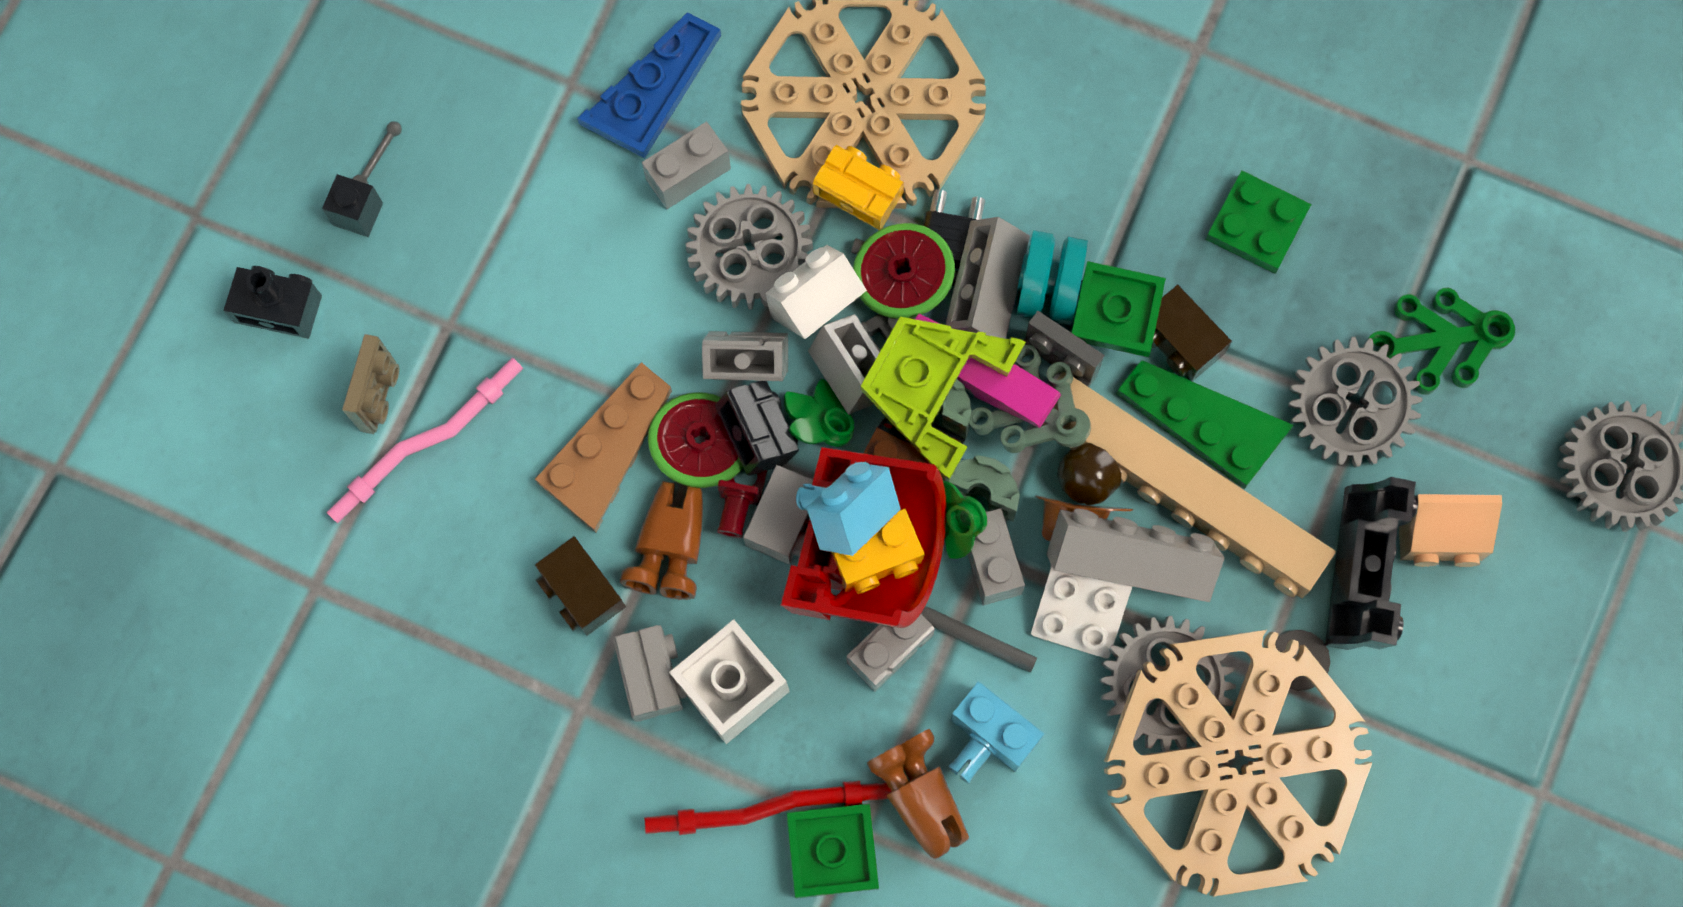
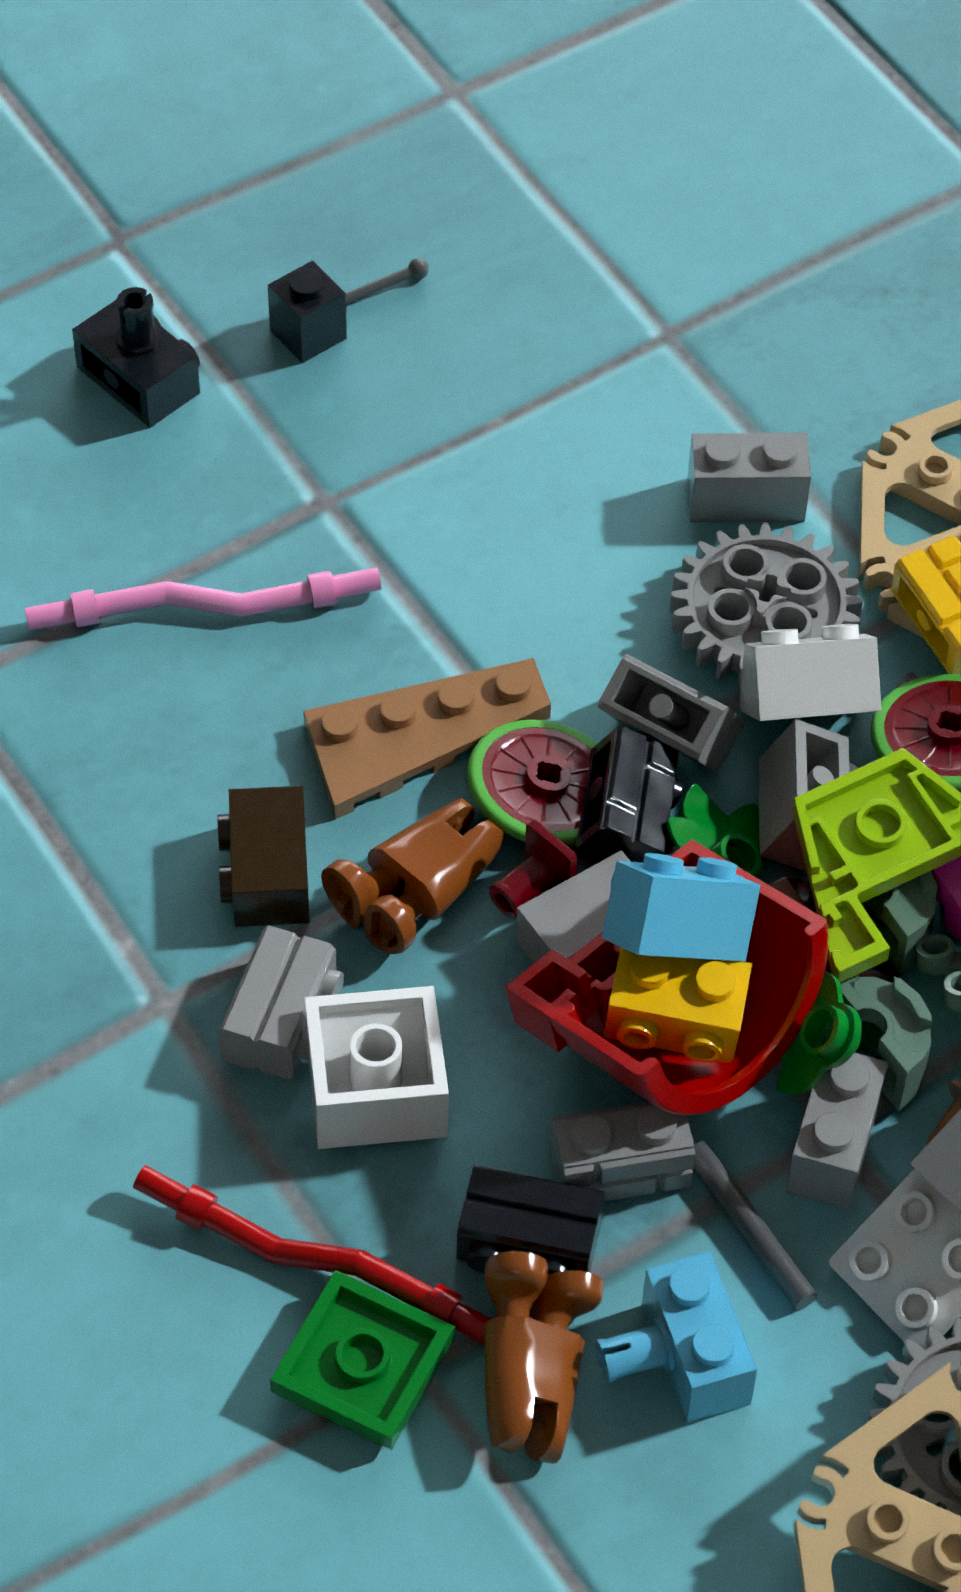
camera: 30 degrees right, 20 degrees down
(369, 385) = (180, 492): dark tan tile -> none
(647, 96) = (770, 379): blue wing -> none
(870, 720) = (529, 1216): none -> black brick

